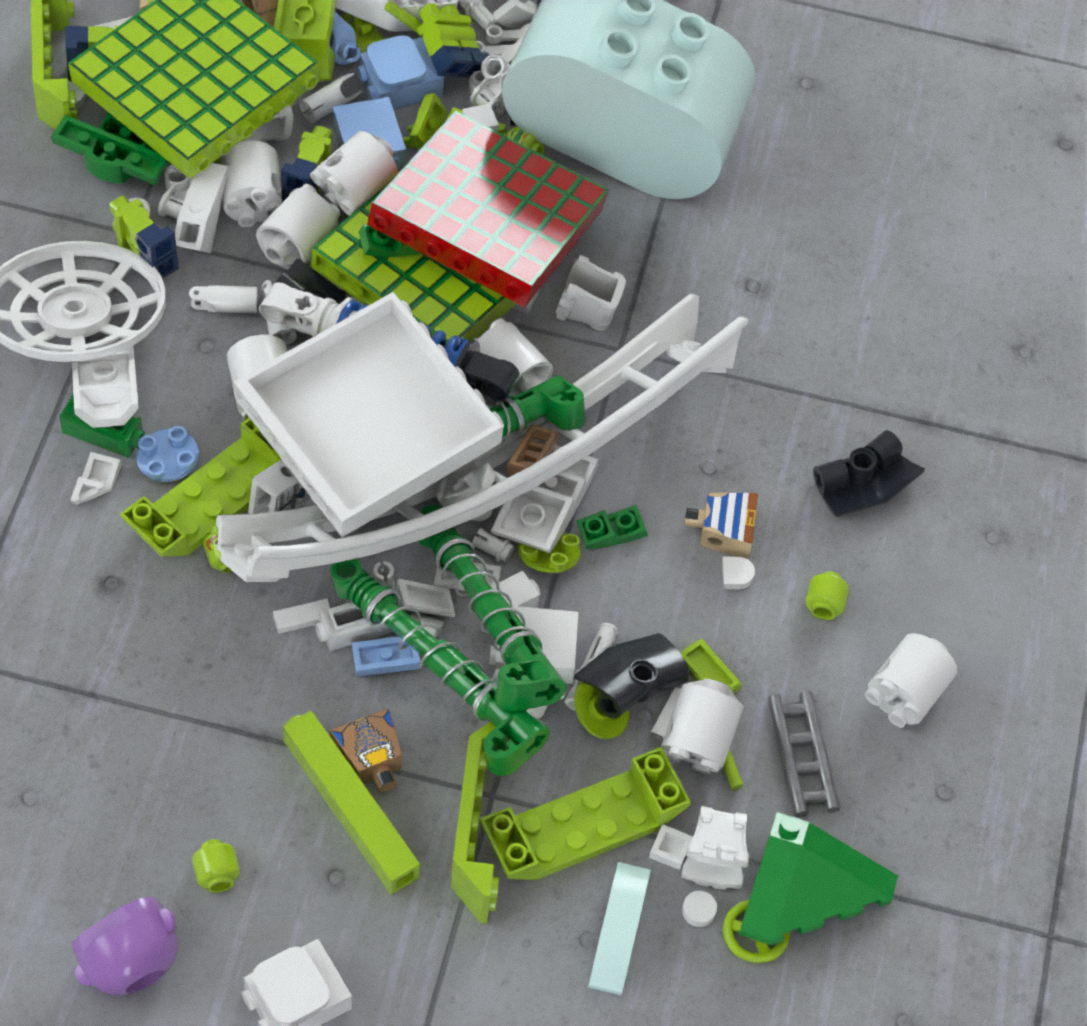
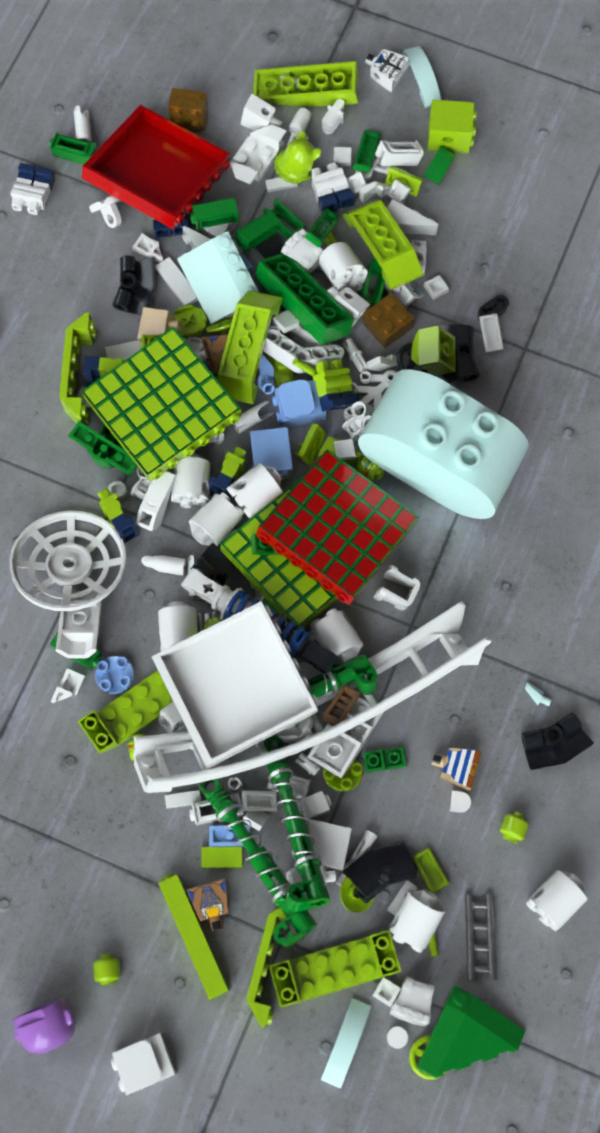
camera: 15 degrees right, 15 degrees up
(377, 688) = (221, 857): none -> lime tile
(827, 418) = (537, 694): none -> light aqua bar

